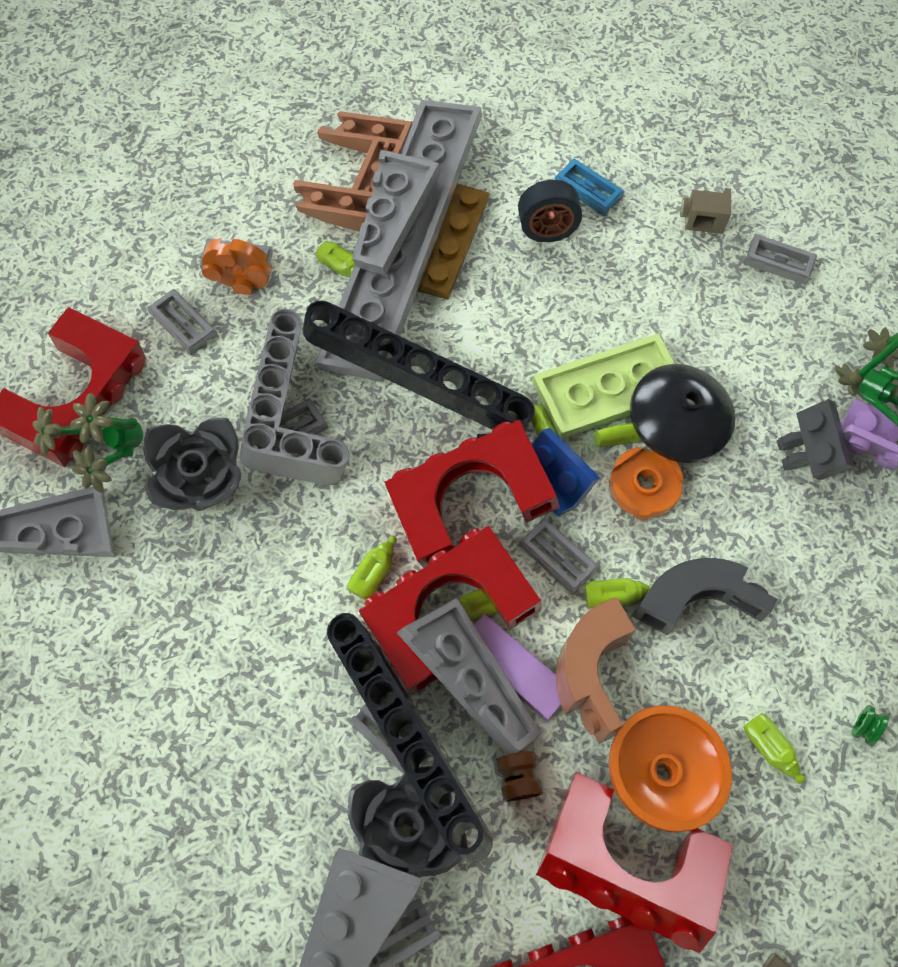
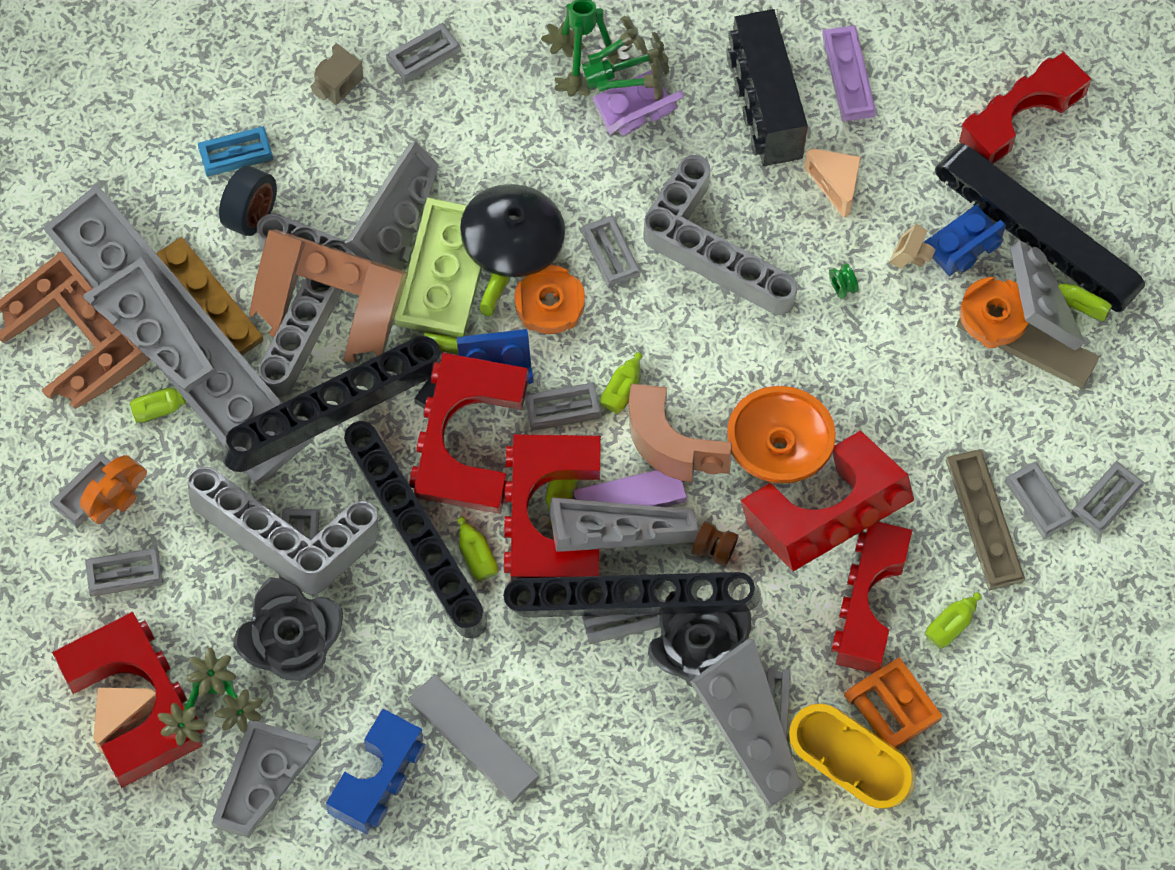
camera: 55 degrees left, 0 degrees up
(44, 384) = (120, 711): none -> light nougat slope
(141, 617) = (363, 800): none -> blue arch
(192, 681) = (473, 738): none -> light grey tile
(353, 522) = (419, 544): none -> black beam
(539, 259) = (305, 303): none -> light grey beam
(545, 337) = (376, 284): none -> nougat wedge
(614, 319) = (394, 212): none -> light grey wing
(699, 580) = (666, 303): dark grey arch -> none
(716, 527) = (621, 275): none -> light grey tile
(774, 746) = (812, 356): lime piece -> none
(802, 581) = (710, 246): none -> light grey beam
(823, 441) = (612, 146): dark grey hinge -> none

